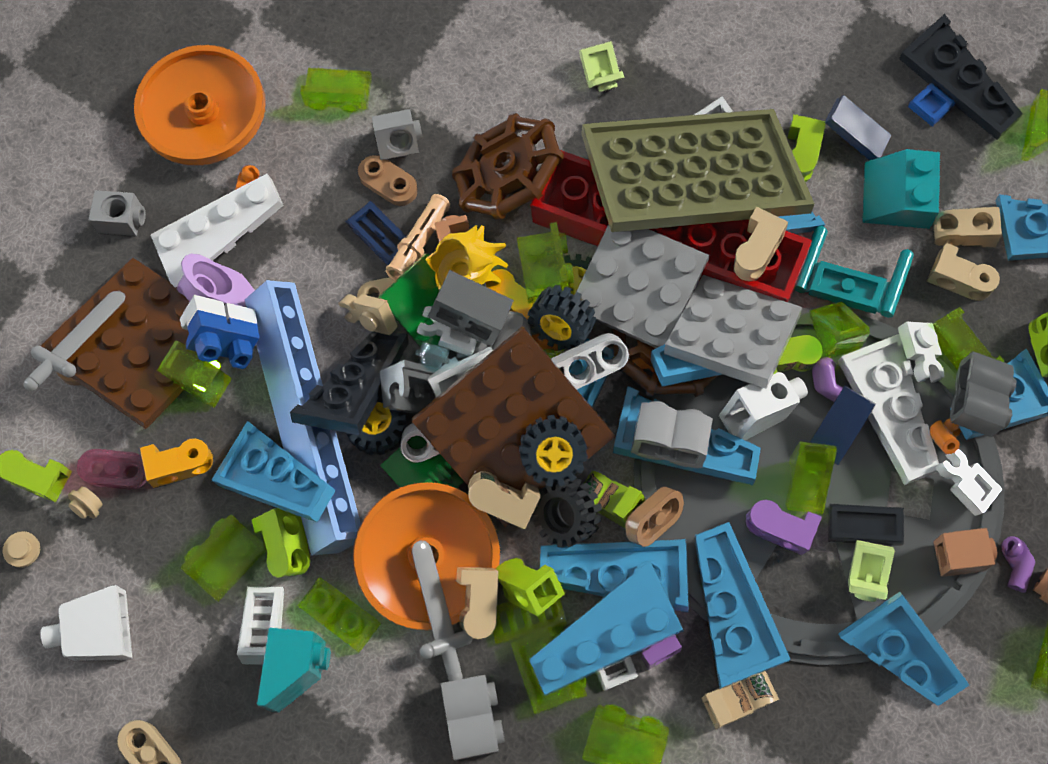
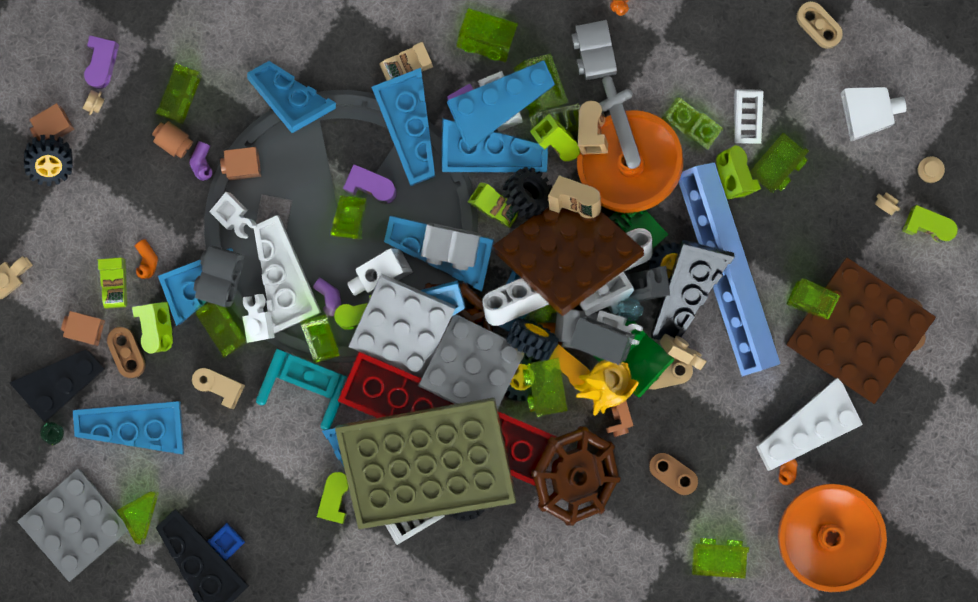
camera: 175 degrees right, 15 degrees up
(57, 358) = (918, 306): light grey sword -> none
(108, 204) = (902, 441): light grey brick -> none
(114, 469) = (868, 230): clear pink plate -> none
(177, 463) = (823, 232): light orange leg -> none
(212, 281) = (804, 377): lavender piece -> none
(220, 330) = (795, 328): blue hips -> none
(272, 476) = (749, 220): dark azure wing -> none
(290, 666) = (722, 82): teal slope -> none
(361, 215) = (661, 409): dark blue tile -> none
(391, 146) = (667, 510): light grey brick -> none
(411, 248) = (633, 446): light nougat pin -> none
(553, 464) = (528, 227): black wheel -> none
(601, 66) = (498, 574): yellowish green bracket -> none
(654, 516) = (464, 188): medium nougat plate -> none
(756, 254) = (384, 381): tan leg -> none
(844, 421) = (322, 259): dark blue tile -> none
(857, 128) = (290, 513): tile -> none
(866, 524) = (309, 188): black tile -> none
(870, 571) = (310, 150): yellowish green bracket -> none
(902, 189) = (260, 460): teal slope -> none
(945, 435) = (249, 248): orange arm -> none
(968, 227) = (211, 426): tan leg -> none

